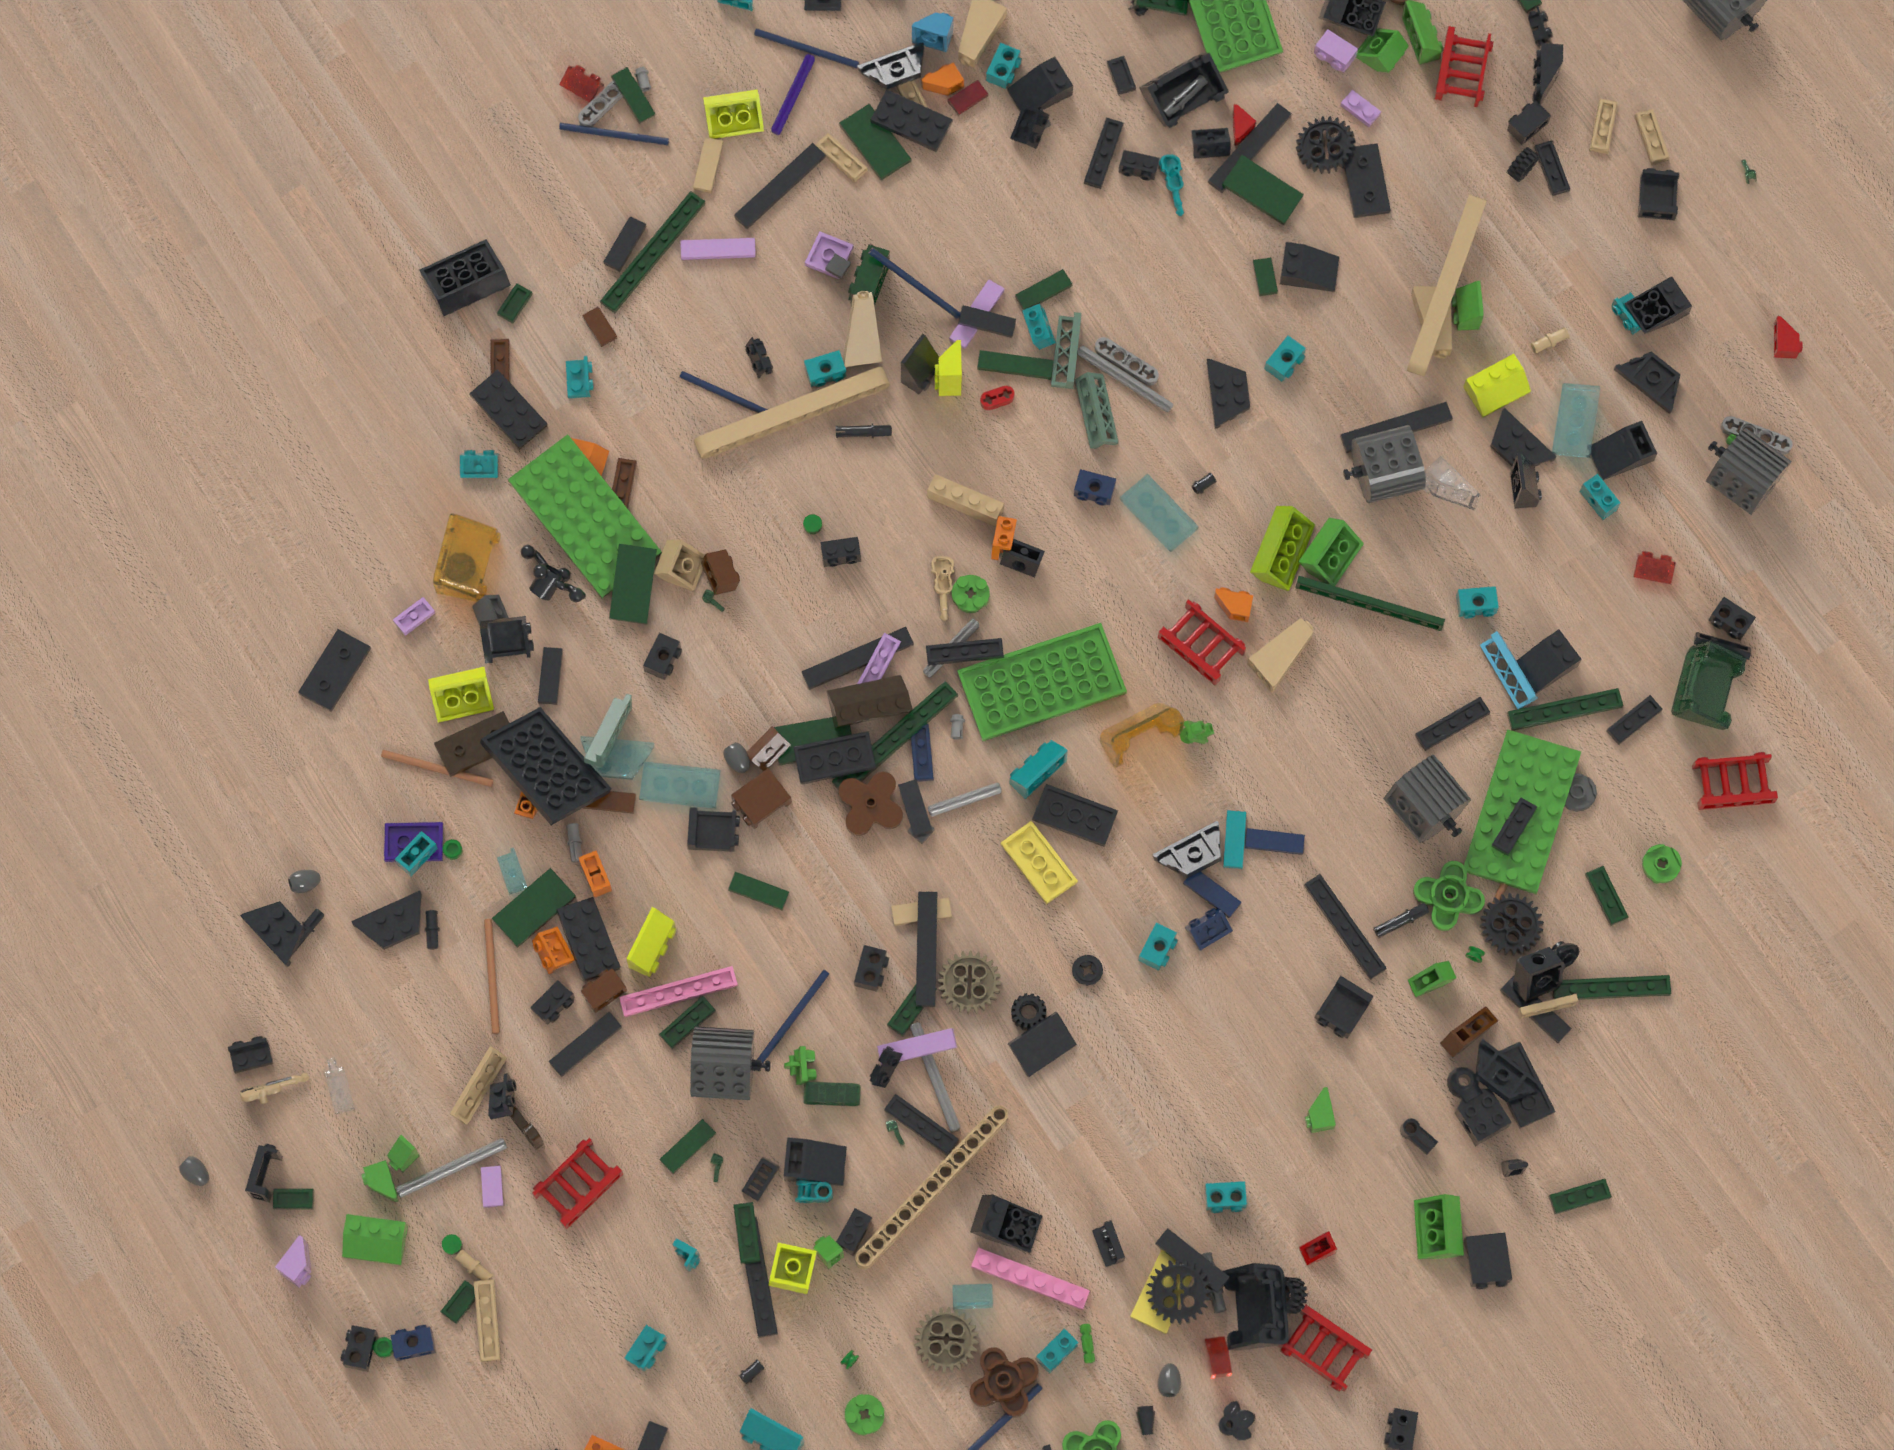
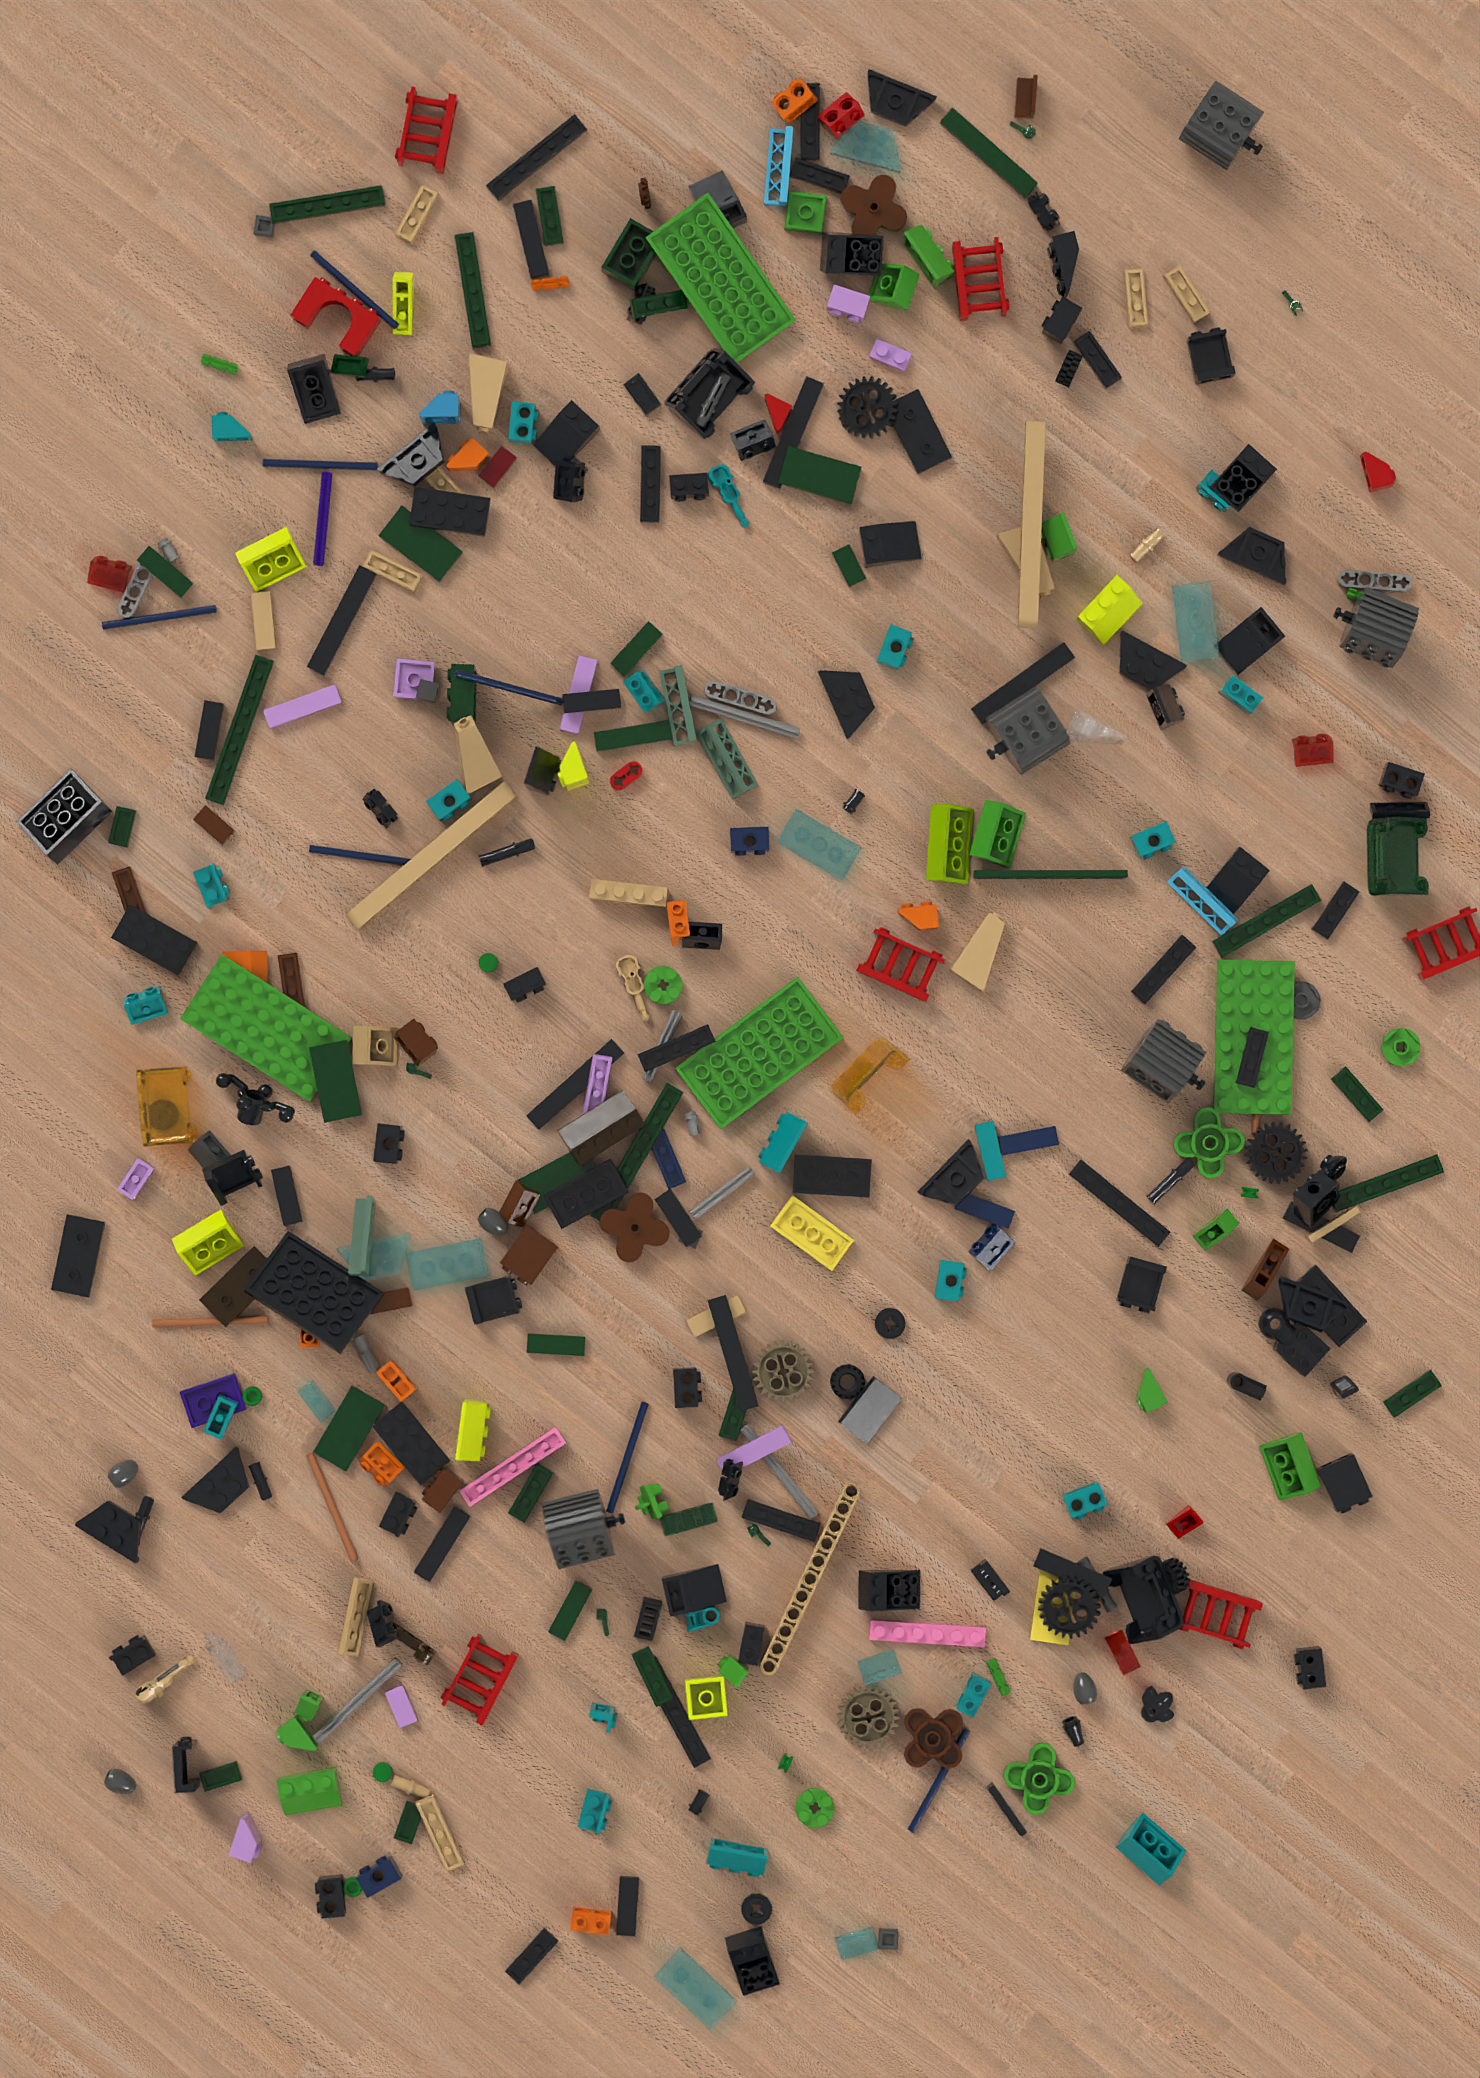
camera: 20 degrees left, 15 degrees up
(1196, 732) = (923, 1058): bright green hips -> none

